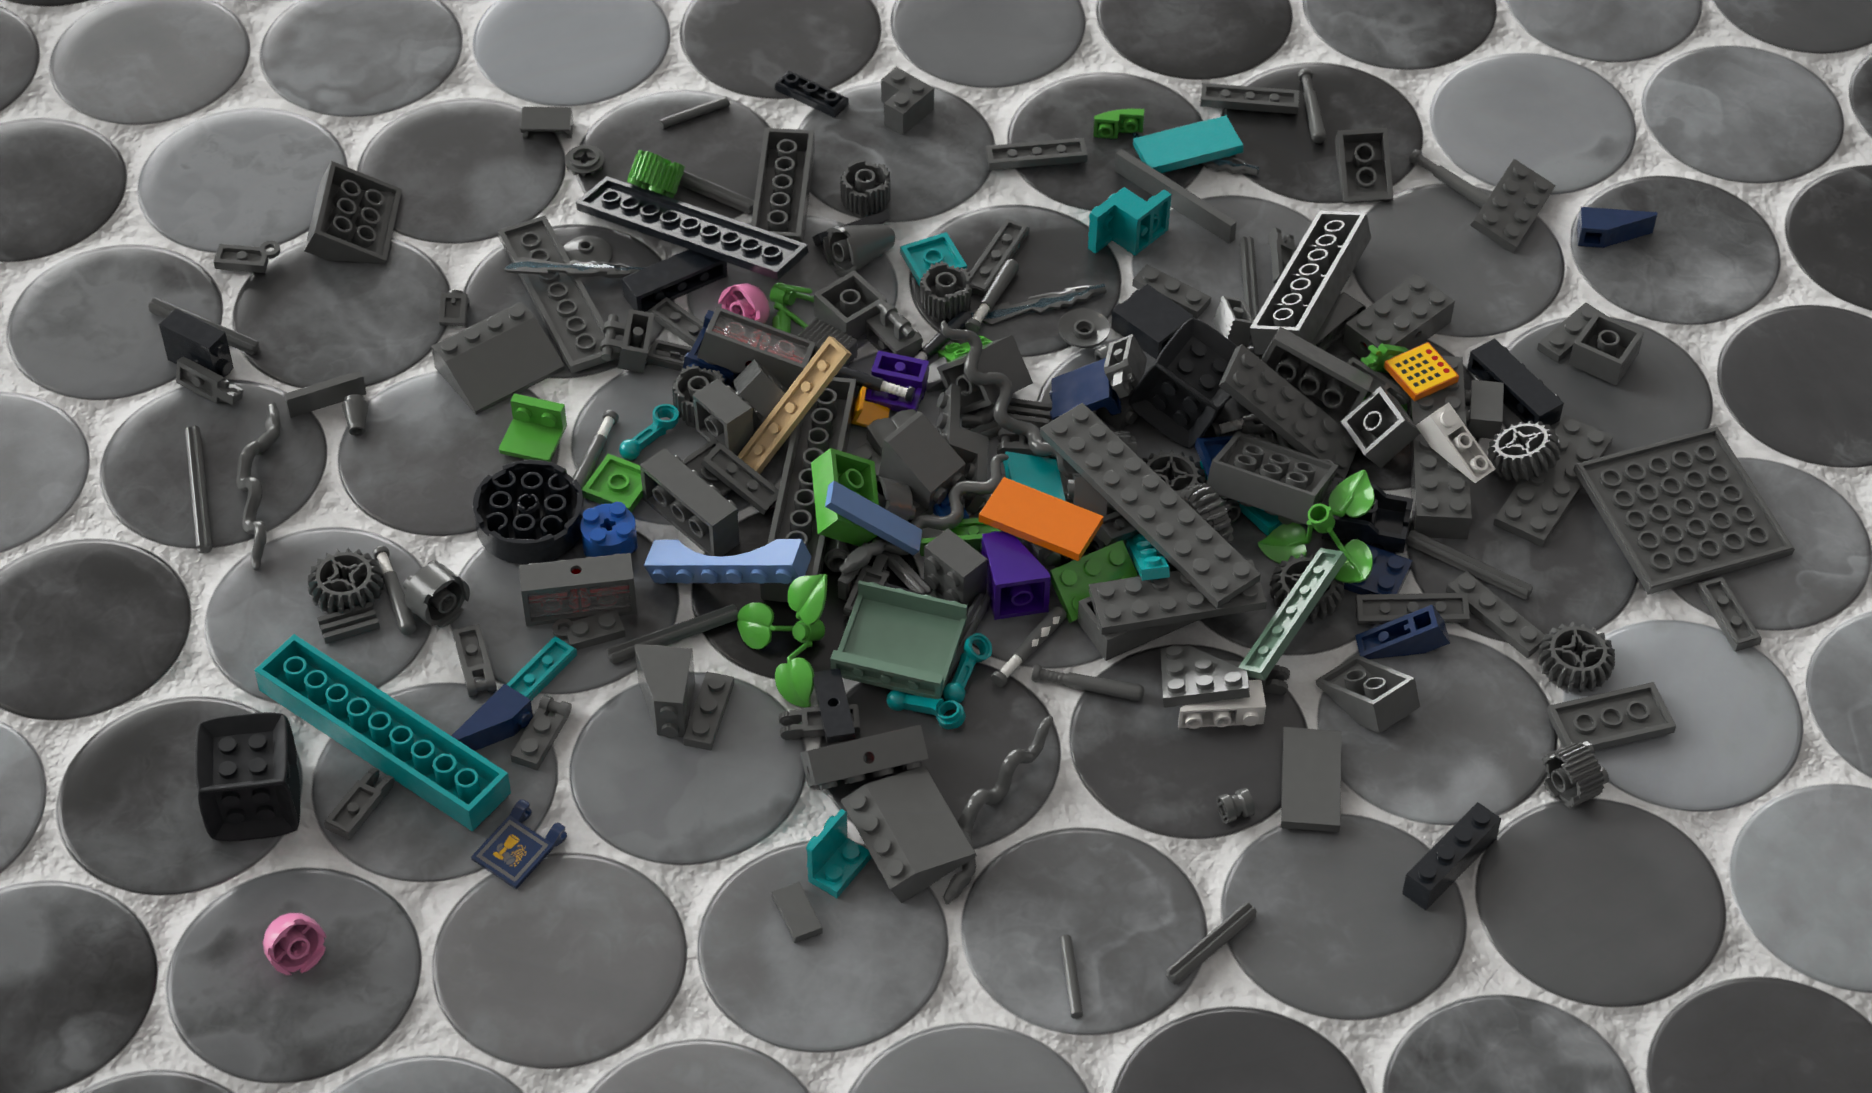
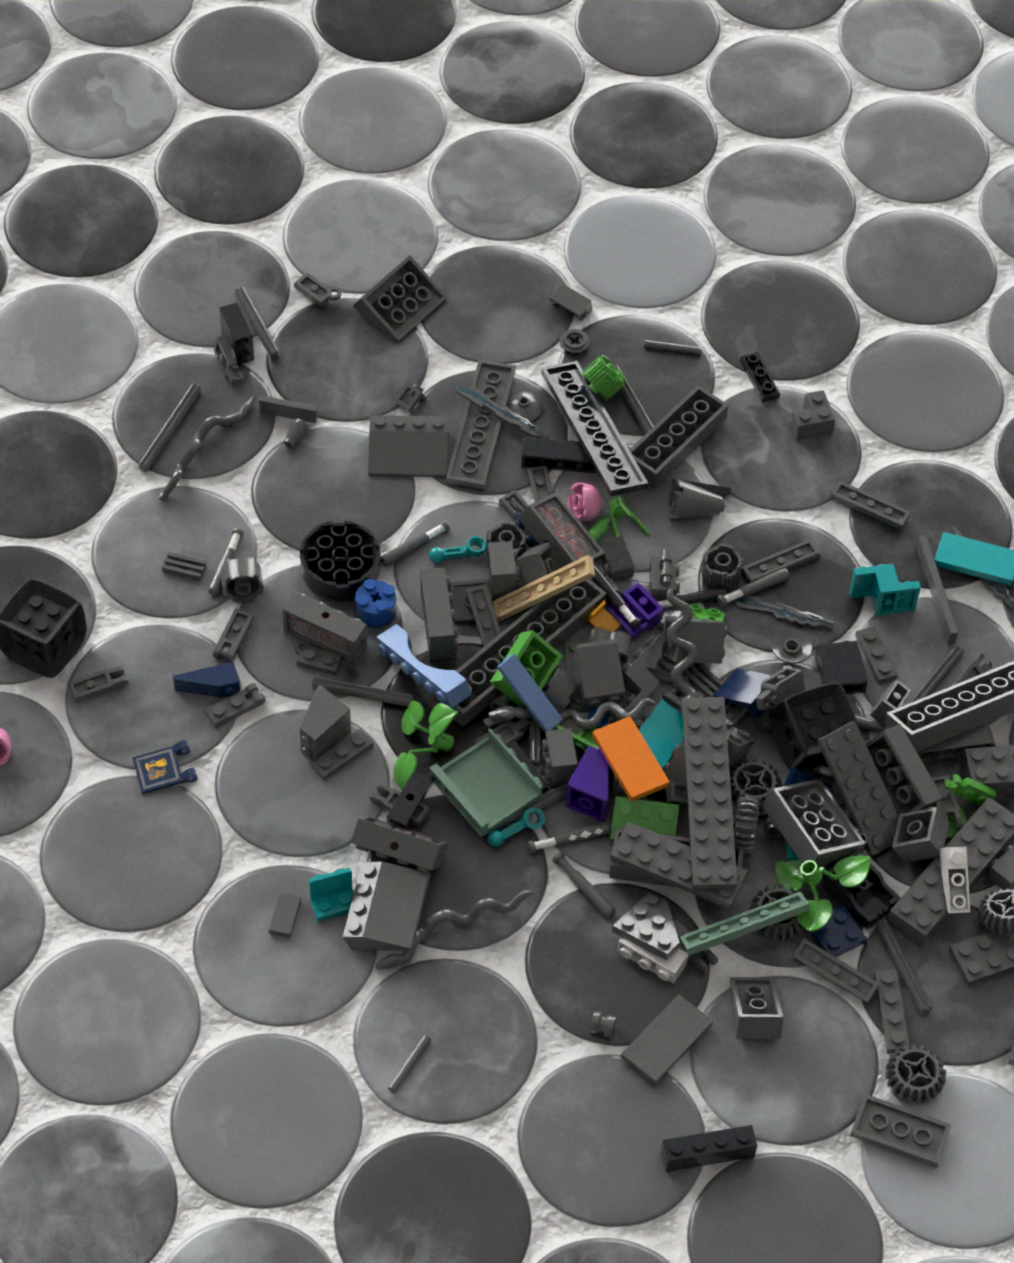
camera: 35 degrees right, 5 degrees up
(345, 581) = (208, 531): dark grey gear -> none
(383, 732) = (143, 648): teal brick -> none
(534, 428) = (389, 508): bright green bracket -> none
(543, 668) = (266, 666): teal tile -> none
(615, 482) = (406, 572): bright green plate -> none
(635, 341) = (497, 484): dark grey brick -> none
(847, 304) = (649, 538): dark grey brick -> none
(865, 188) = (732, 464): dark grey brick -> none
(899, 700) = (477, 841): teal piece -> none
(928, 251) = (739, 535): teal plate -> none
(1124, 120) = (940, 512): bright green slope -> none
(1147, 558) = (678, 832): teal plate -> none
(1211, 943) = (511, 1101): dark grey axle -> none
(1405, 636) = (815, 986): dark blue slope -> none
(1421, 371) = (981, 813): tile -> none
(1574, 773) = (835, 1149): dark grey brick -> none

